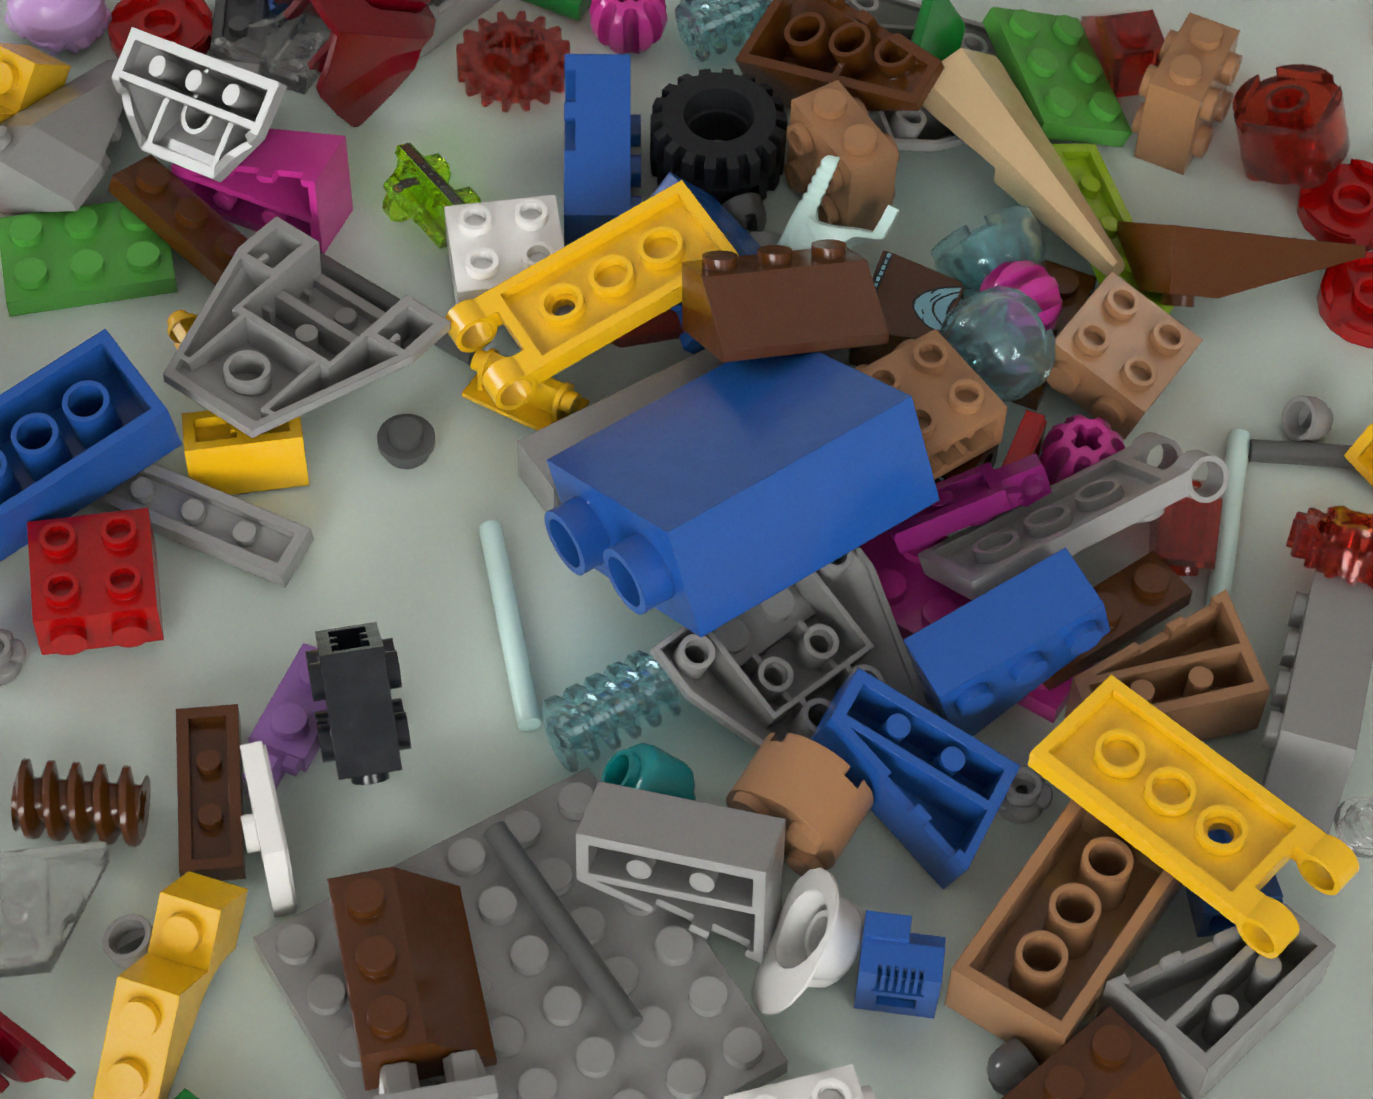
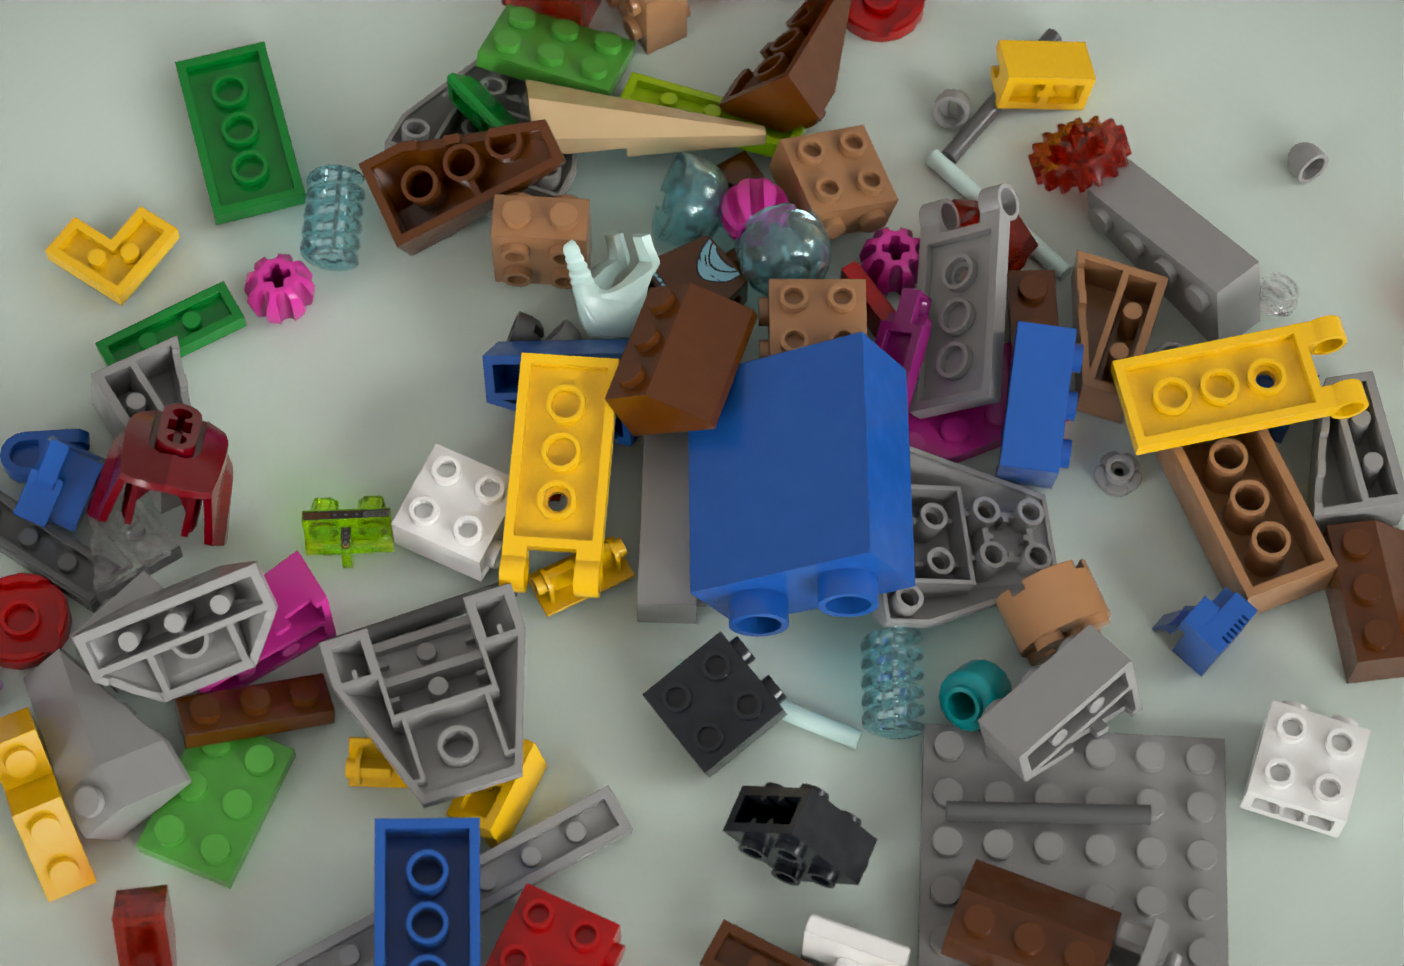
camera: 55 degrees left, 10 degrees up
(290, 722) = (751, 891): medium lavender hinge -> none
(406, 440) = (561, 676): dark grey plate -> none
(459, 564) = (717, 702): none -> black brick
(512, 61) = (269, 410): clear red gear -> none
(598, 142) = (406, 390): blue wedge -> none
(723, 109) = (443, 273): black tyre -> none
(811, 945) = (1161, 674): white piece -> none
(925, 774) = (1093, 519): blue wedge -> none
(1010, 1066) = (1314, 610): dark grey hinge -> none

